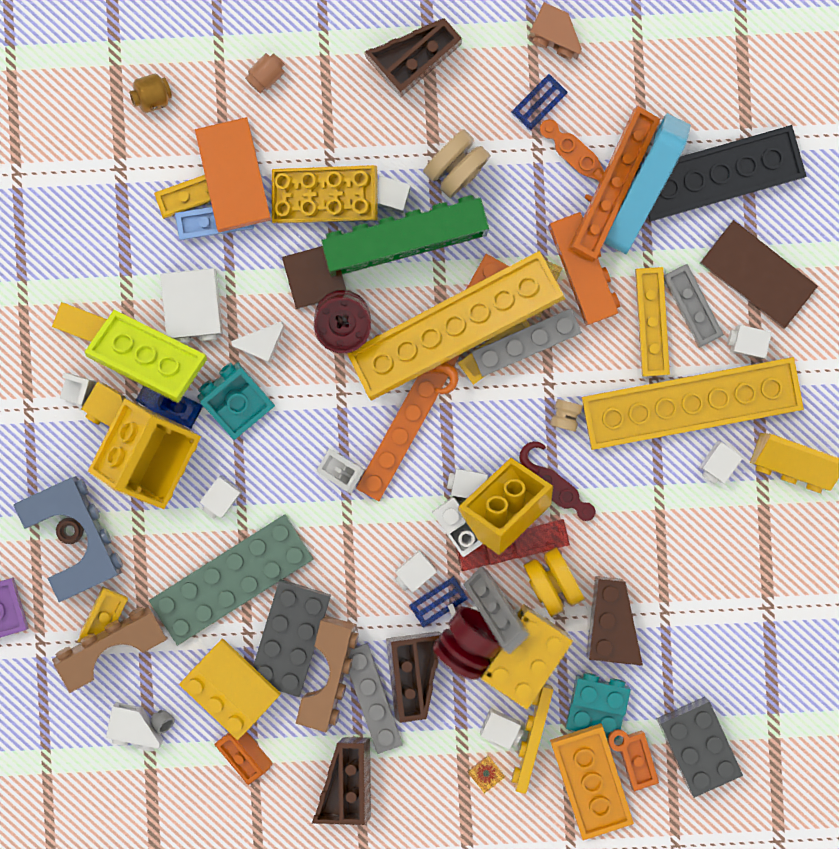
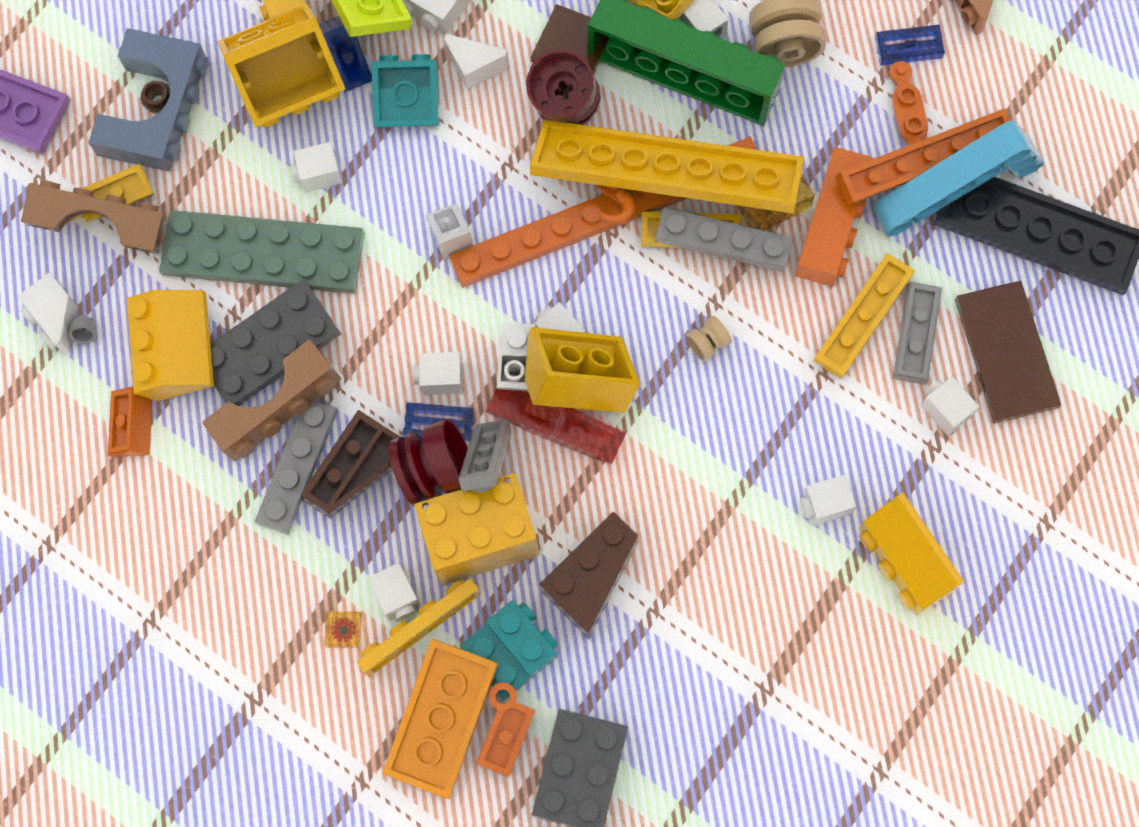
camera: 45 degrees right, 15 degrees down
(347, 786) = (201, 522): reddish brown wedge -> none
(553, 582) = (560, 480): yellow wheel -> none
(563, 492) = (645, 407): dark red piece -> none
(692, 403) = (846, 423): yellow plate -> none

